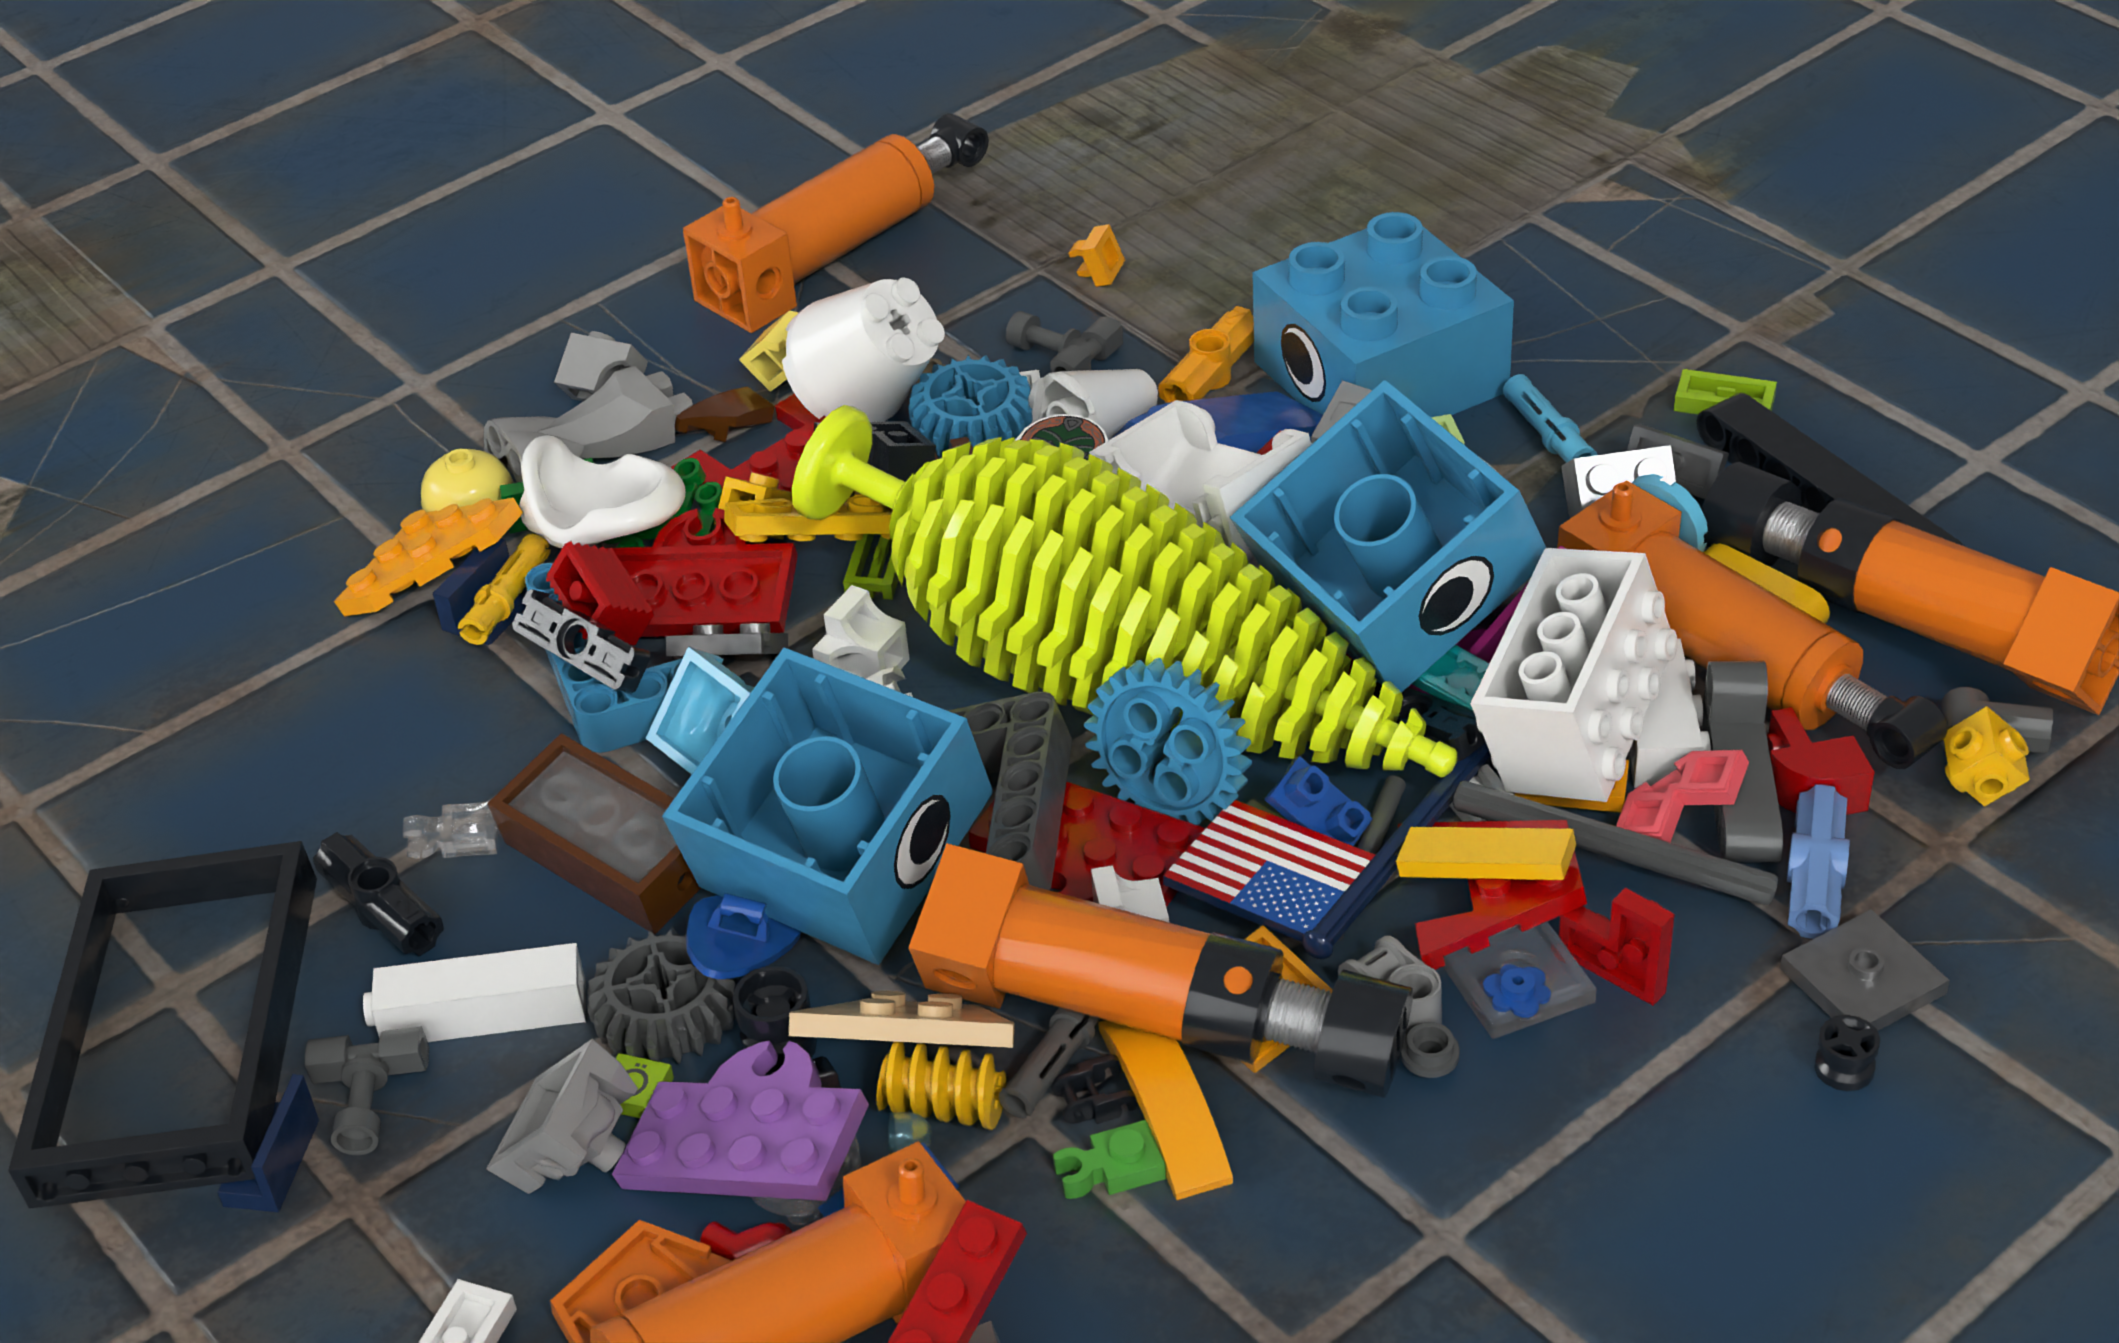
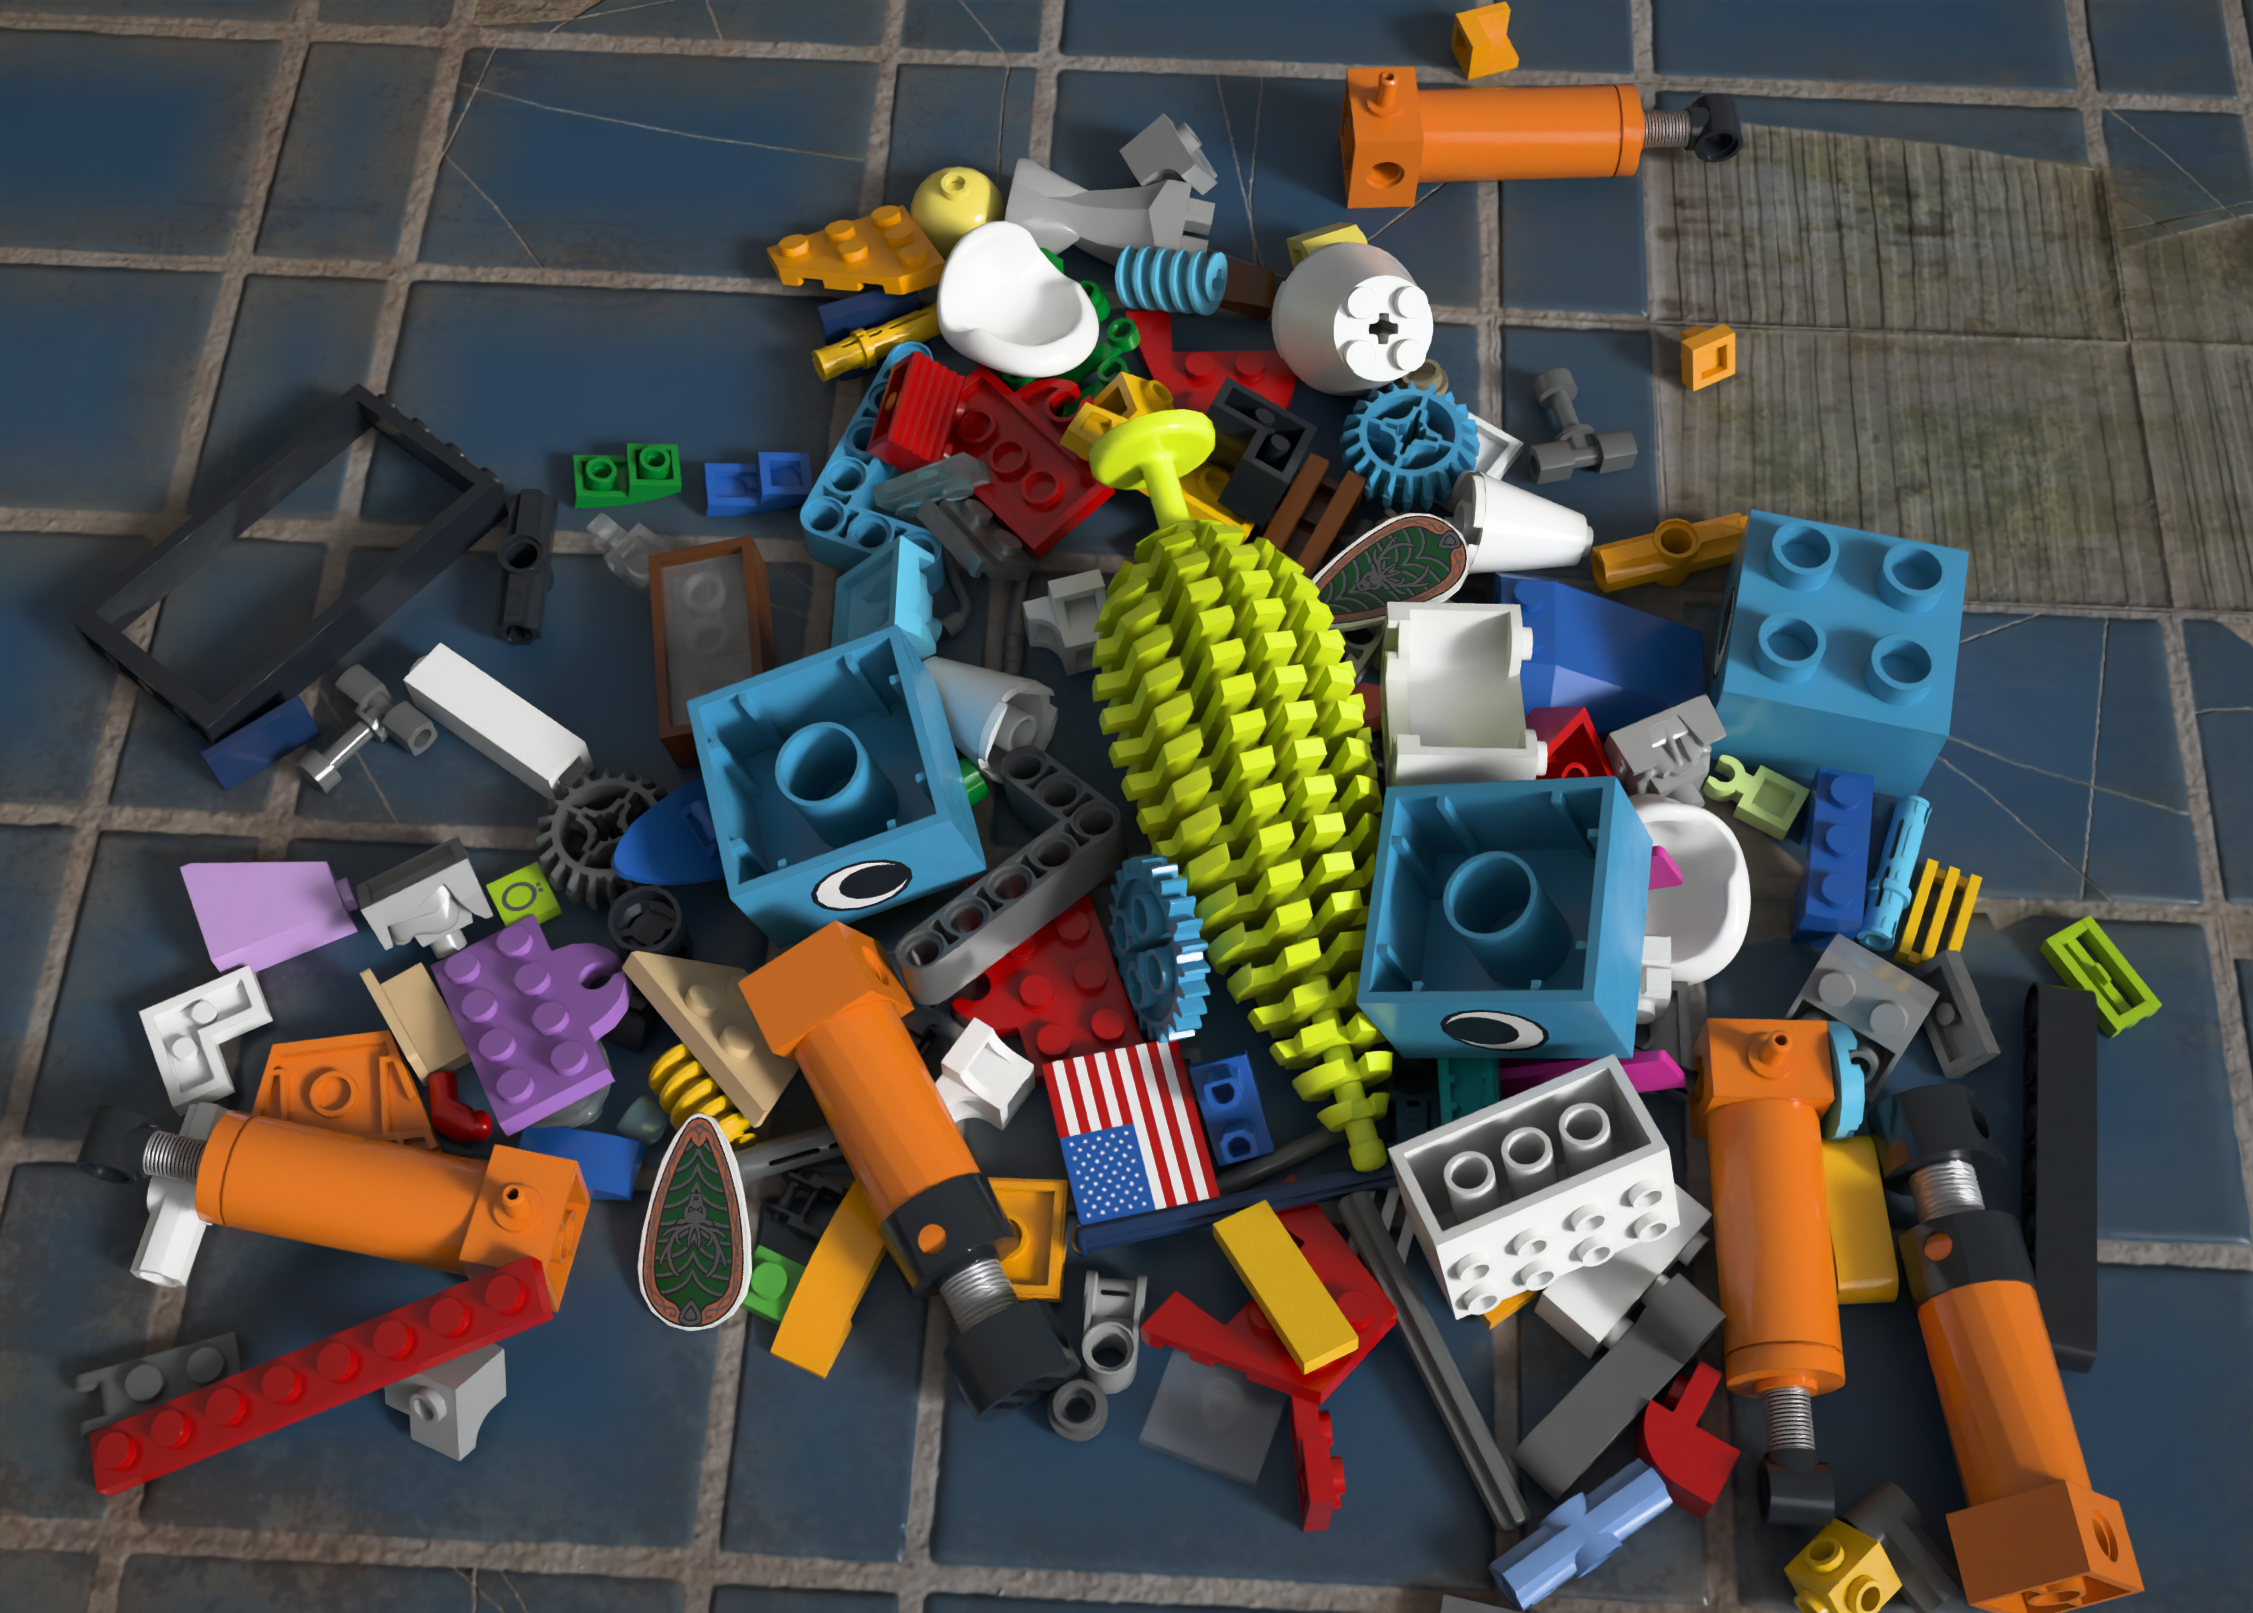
camera: 40 degrees right, 20 degrees up
(395, 793) = (620, 480): none -> green slope
(422, 1239) = (267, 910): none -> lavender slope
(511, 731) = (770, 485): none -> blue slope
(604, 656) = (853, 476): piece -> none
(617, 1205) = (419, 1021): none -> tan panel
(668, 616) = (943, 480): none -> clear light blue plate
(689, 421) = (1171, 280): none -> medium azure piece
(731, 182) = (1482, 41): none -> light orange panel
(1039, 1154) = (696, 1231): none -> shield
(1517, 990) = (1184, 1440): blue plant -> none
(1528, 443) = (1835, 868): none -> blue arch
(1604, 418) = (1950, 881): none -> yellow tile
(1698, 780) = (1510, 1354): coral tile -> none

